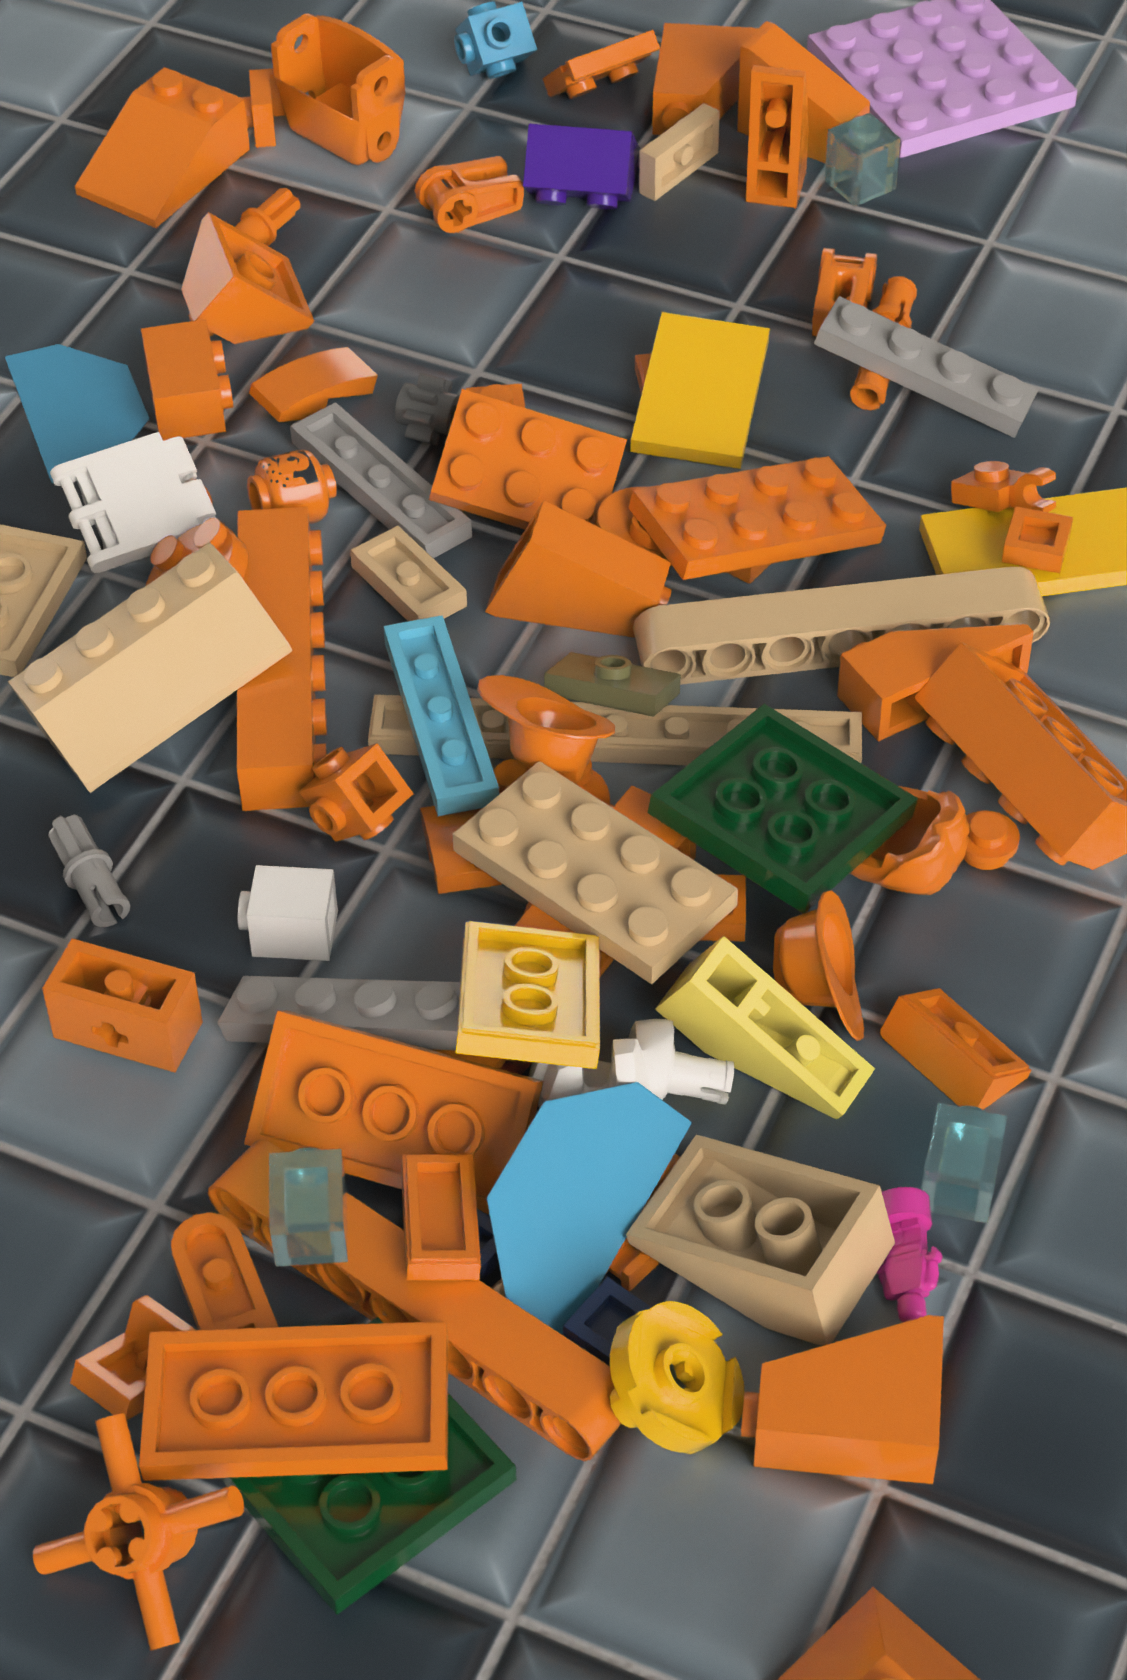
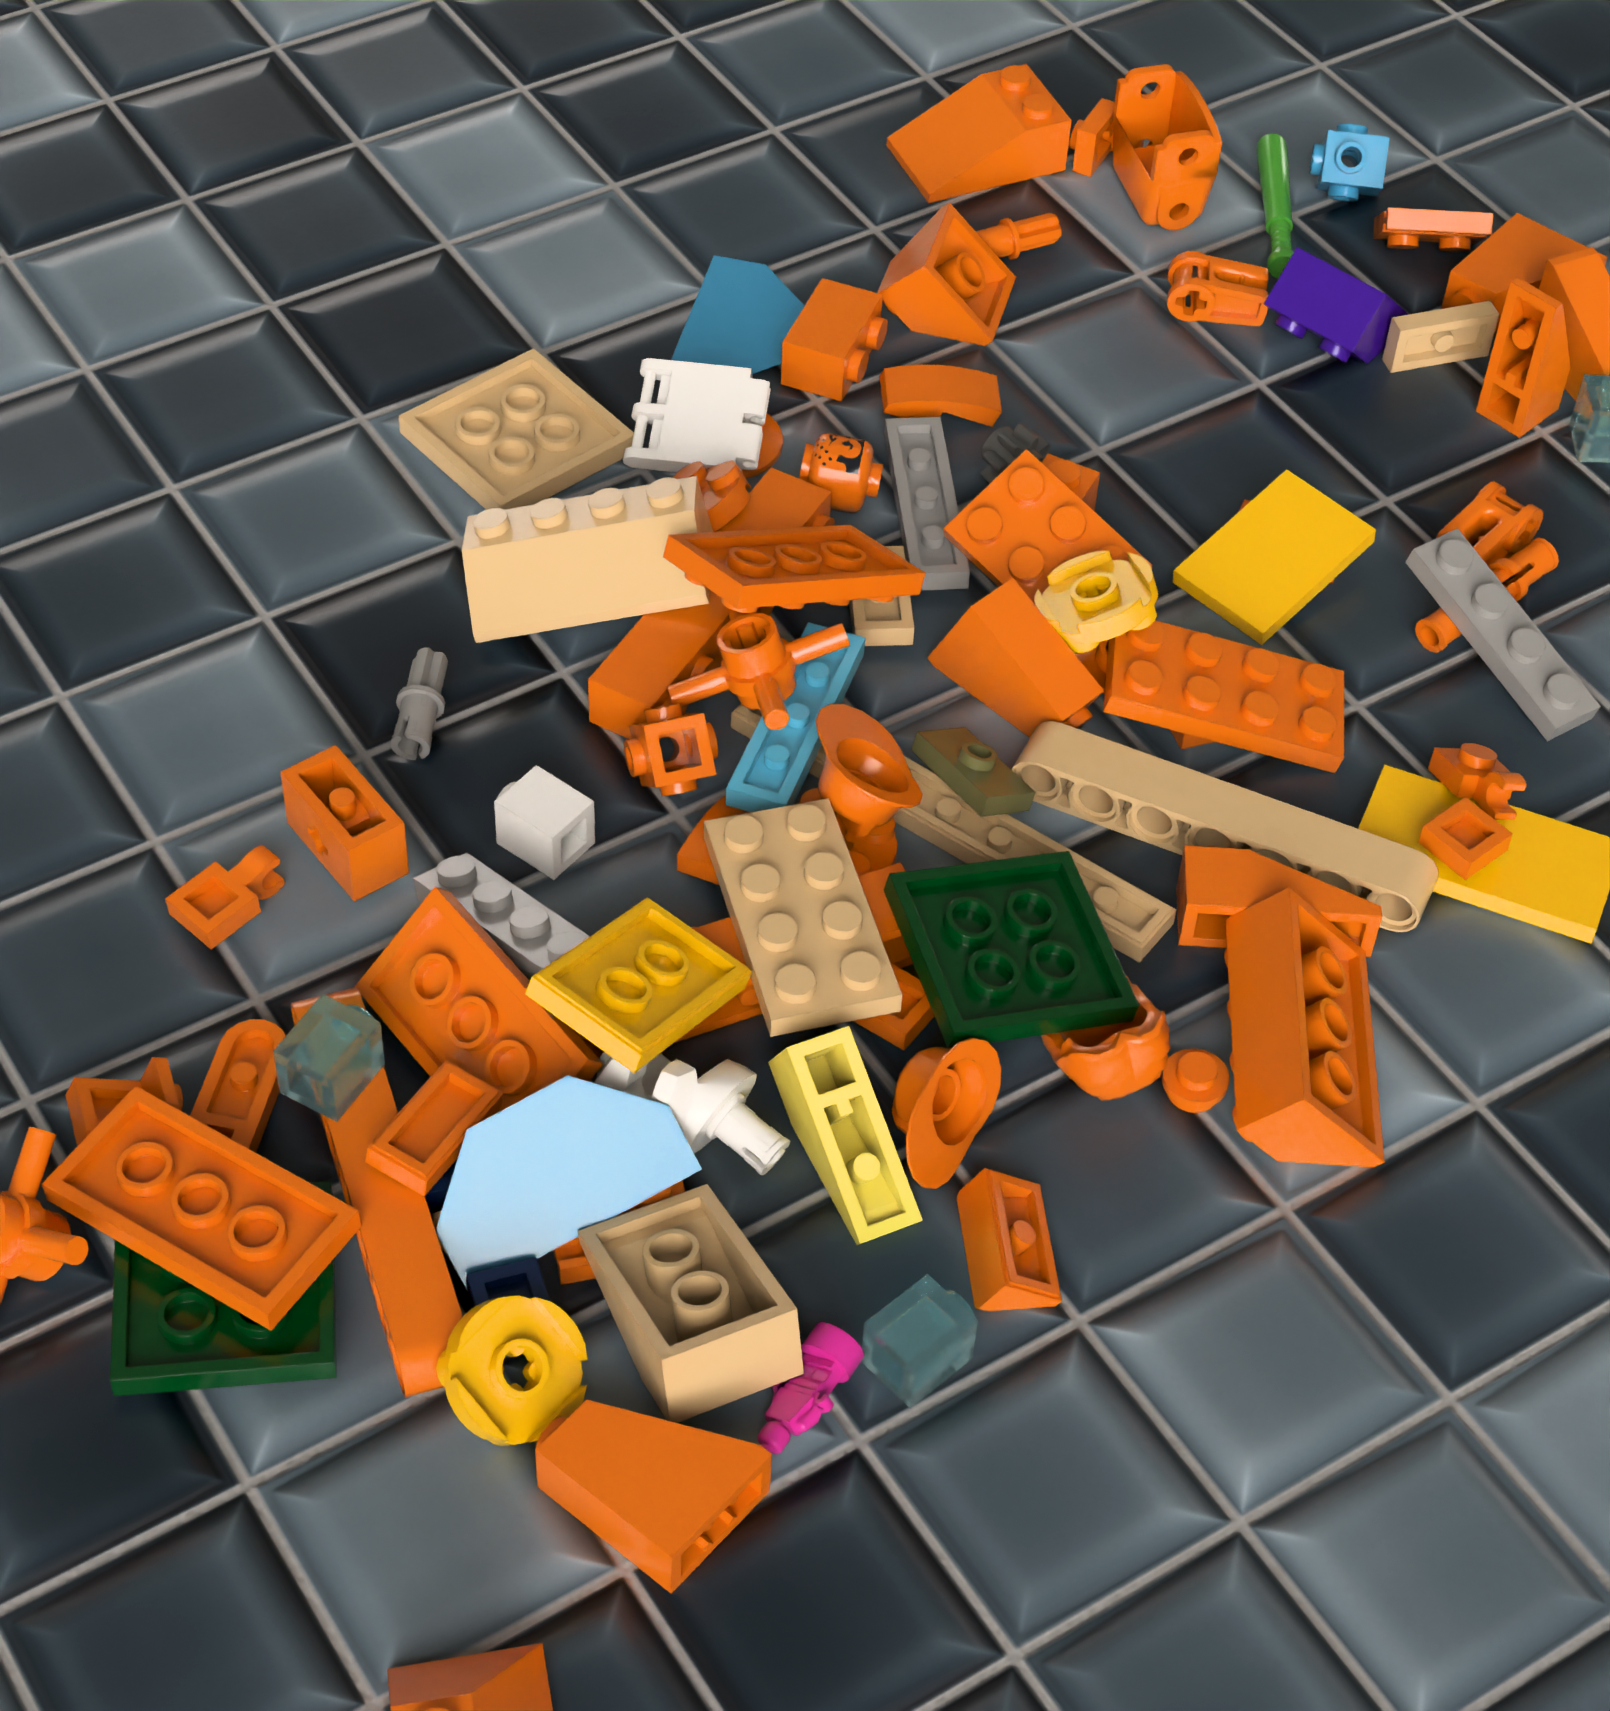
camera: 30 degrees right, 0 degrees up
(58, 1137) = (222, 900): none -> orange plate
(348, 582) = (793, 566): none -> orange plate
(385, 679) = (758, 665): none -> orange bar
(447, 93) = (1275, 189): none -> bright green piece
(634, 464) = (1123, 600): none -> yellow plate

